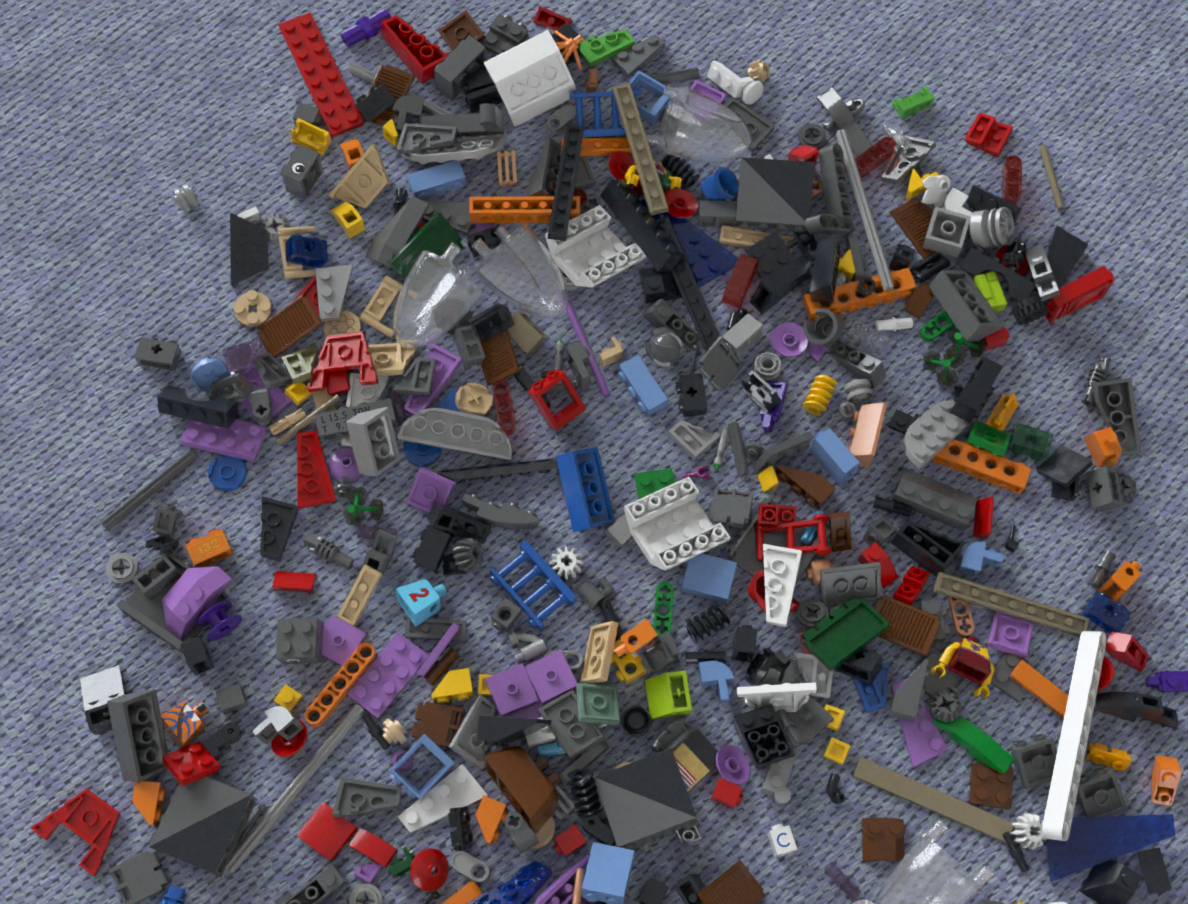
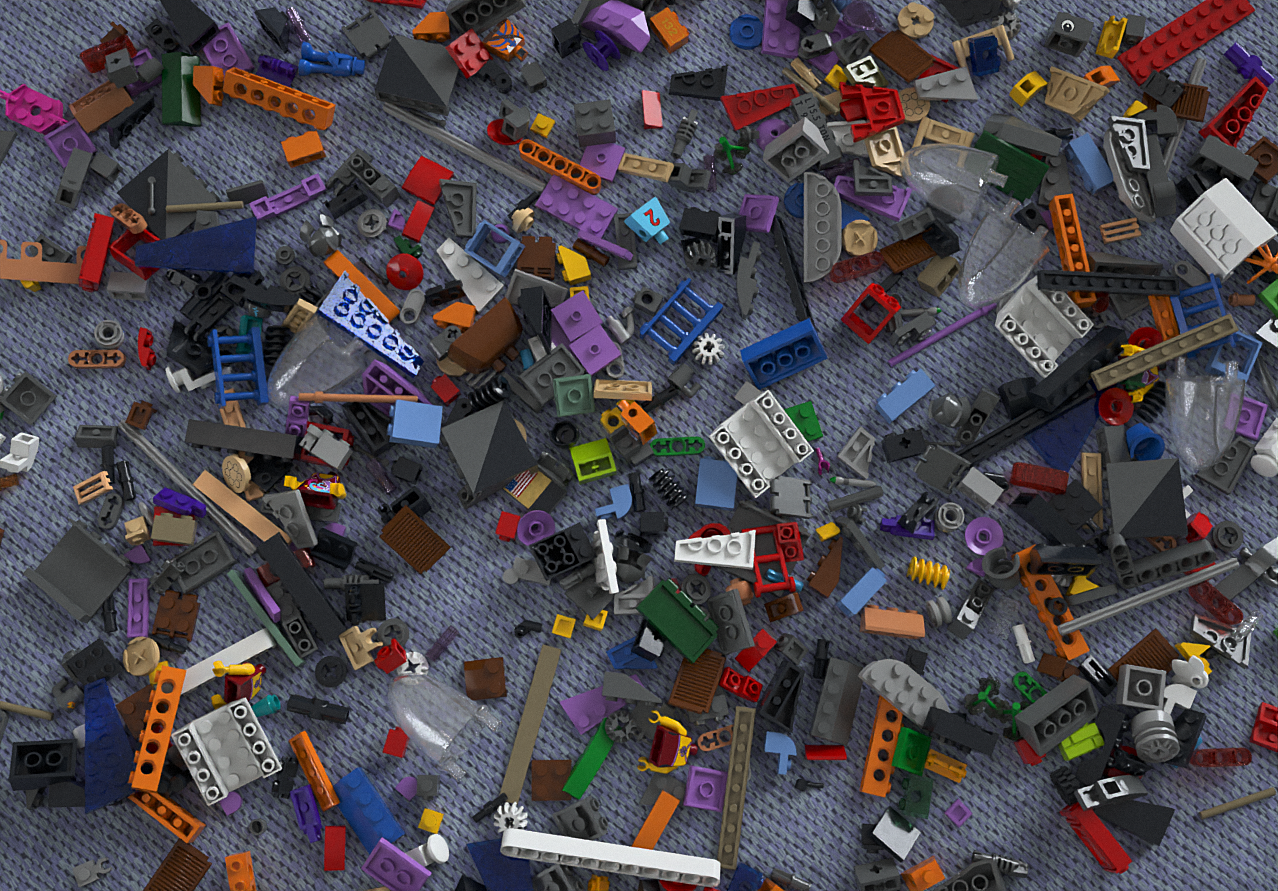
camera: 80 degrees right, 10 degrees up
(612, 354) = (932, 361): tan bracket -> none
(782, 840) = (471, 582): white brick -> none
(849, 407) = (922, 604): light grey hinge -> none
(902, 257) = (1102, 645): black bracket -> none
(1046, 409) = (958, 813): none -> medium lavender tile

